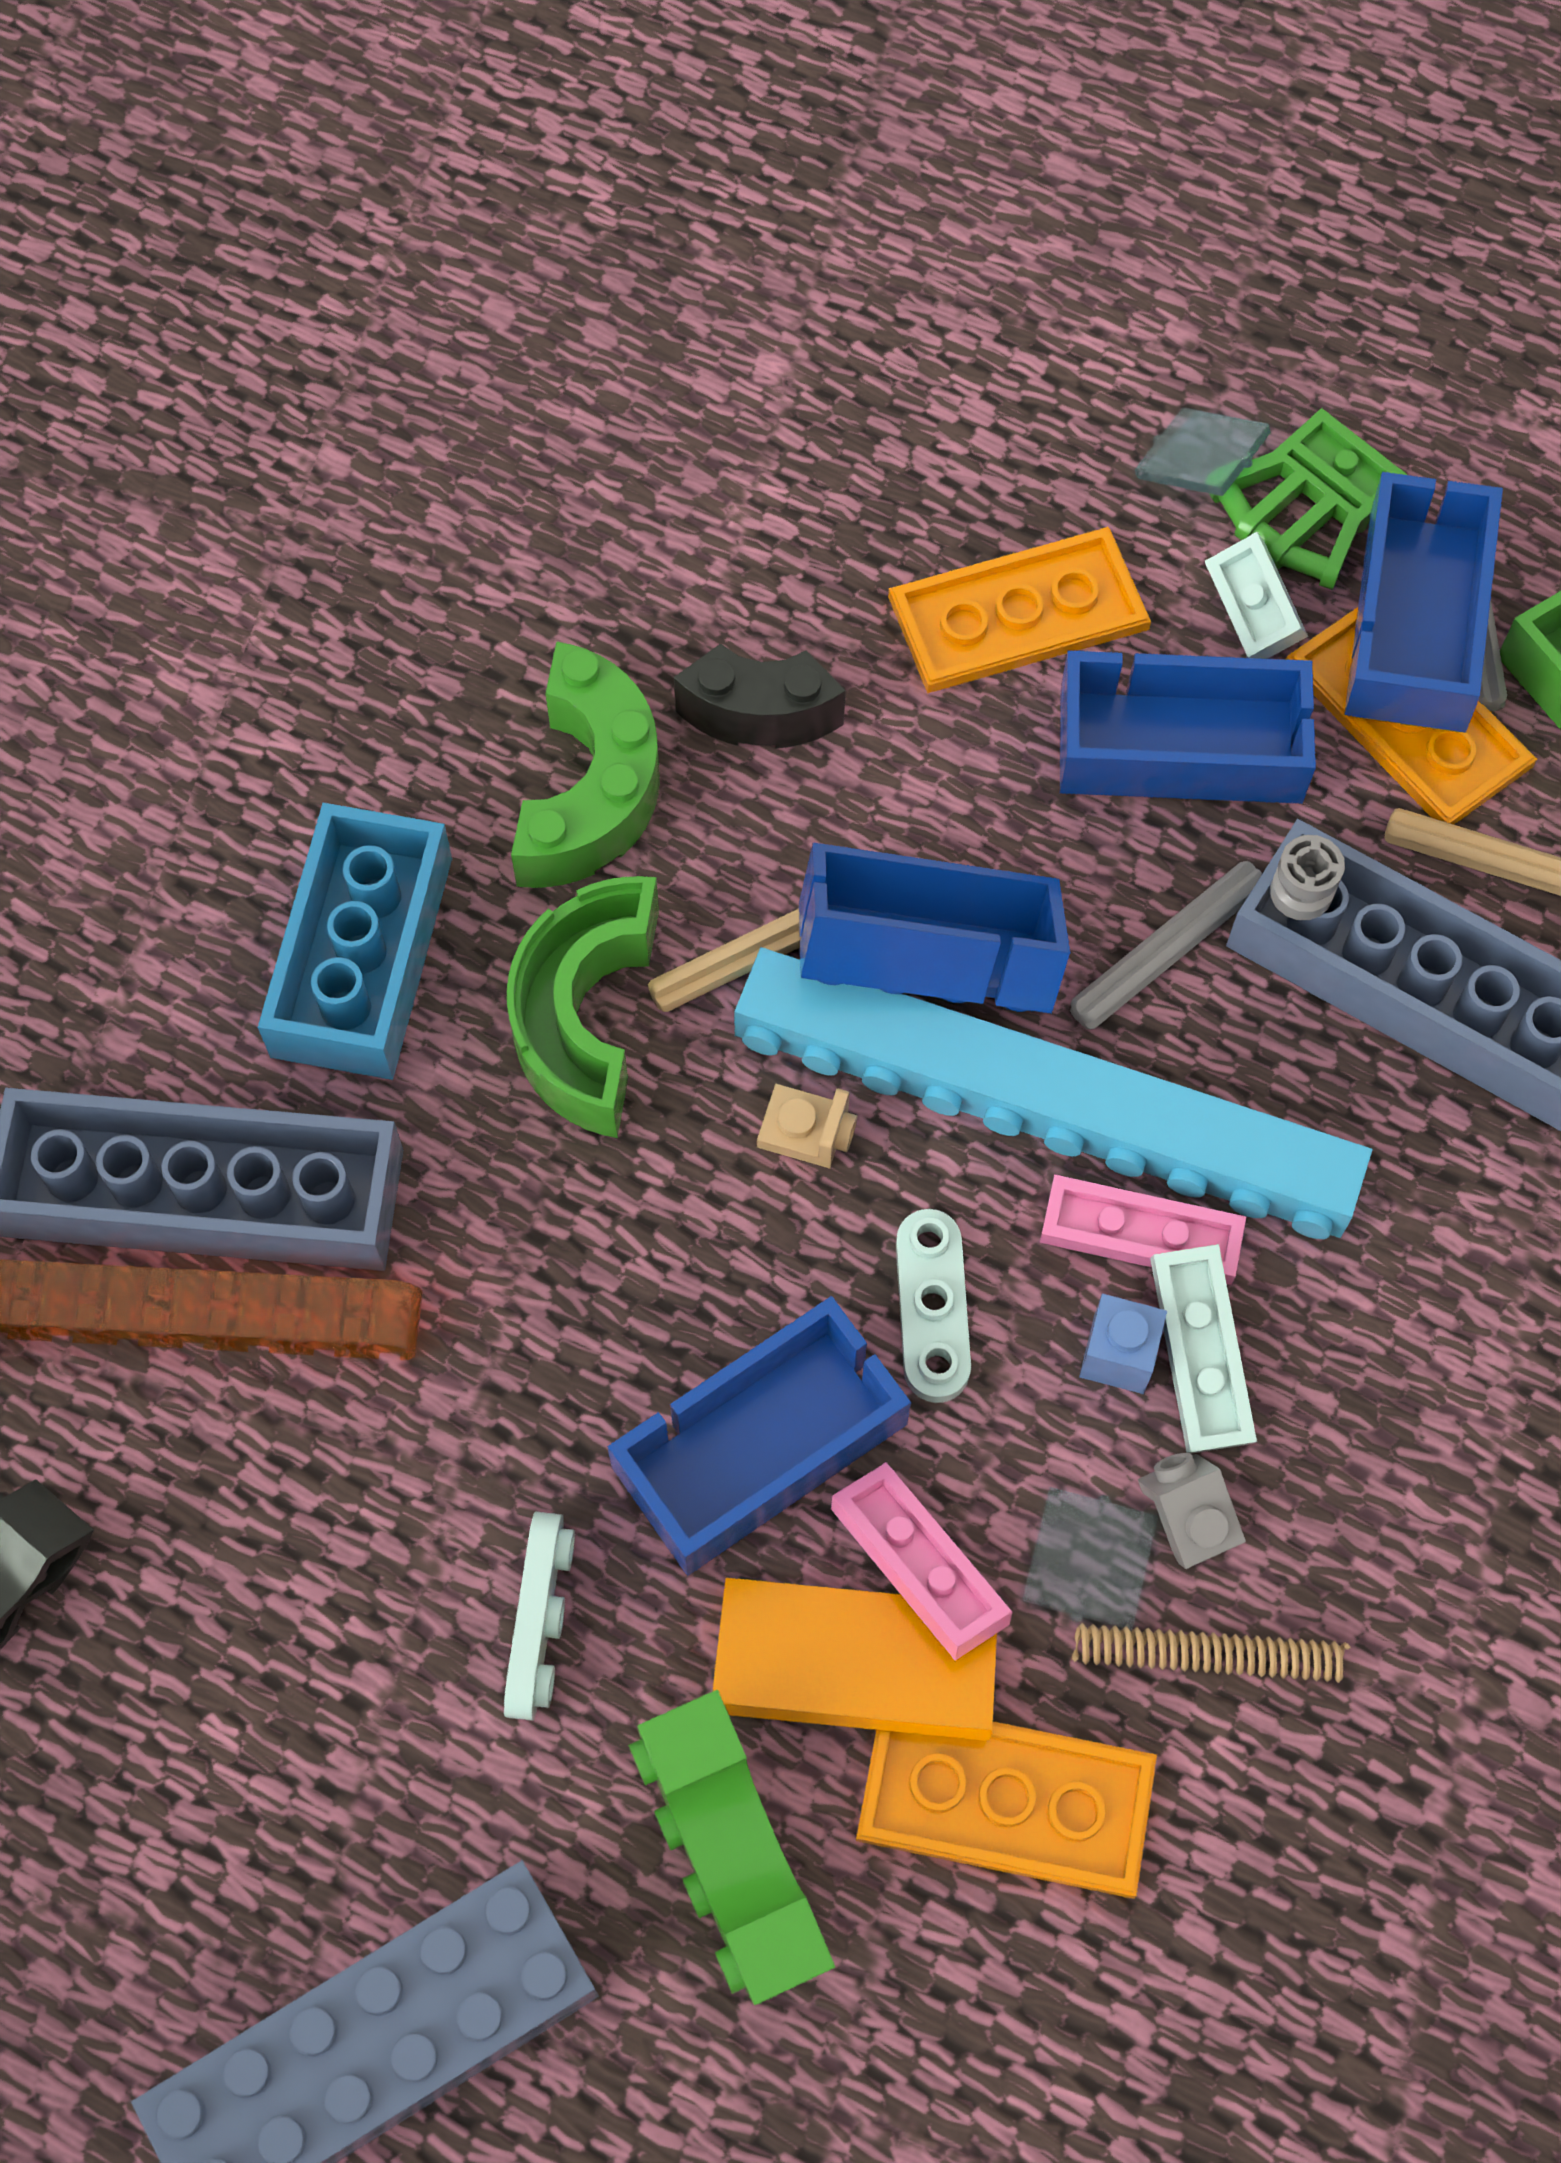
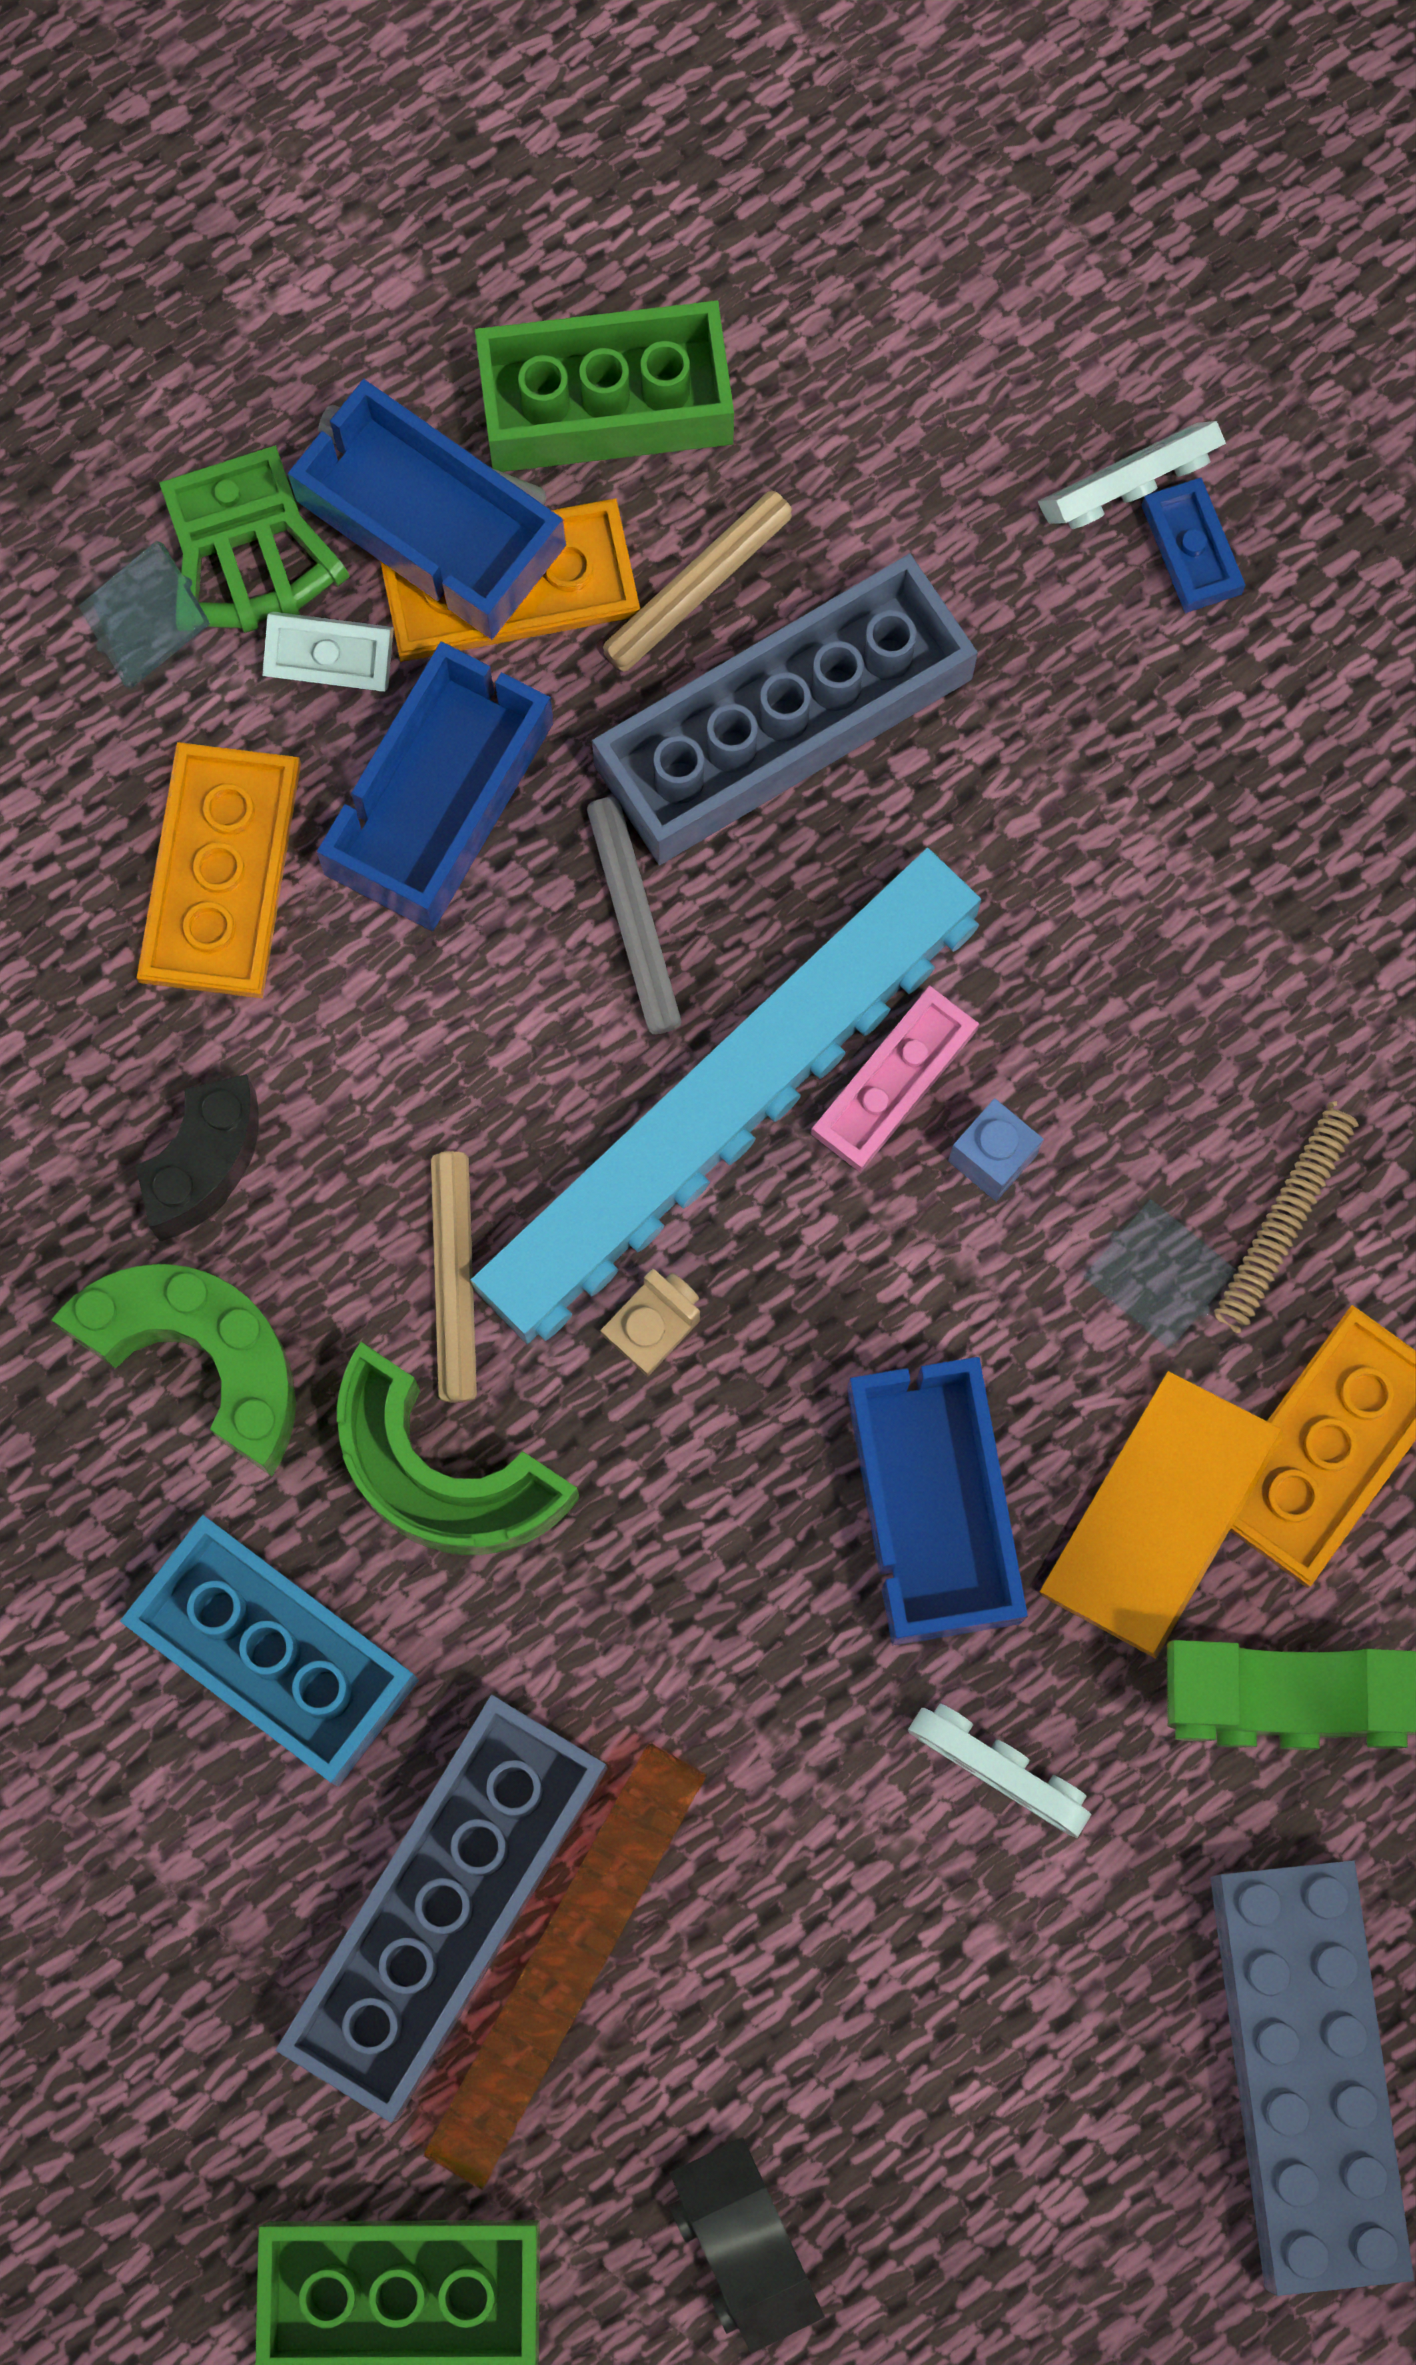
camera: 65 degrees left, 10 degrees up
(921, 1561) = (1105, 1417): bright pink plate -> none
(926, 1330) = (896, 1316): light aqua plate -> none
(932, 928) = (536, 1117): blue piece -> none
(1193, 1507) = (1159, 1166): light grey bracket -> none
(1203, 1349) = (1031, 1084): light aqua plate -> none
(1296, 887) = (665, 778): light grey wheel -> none

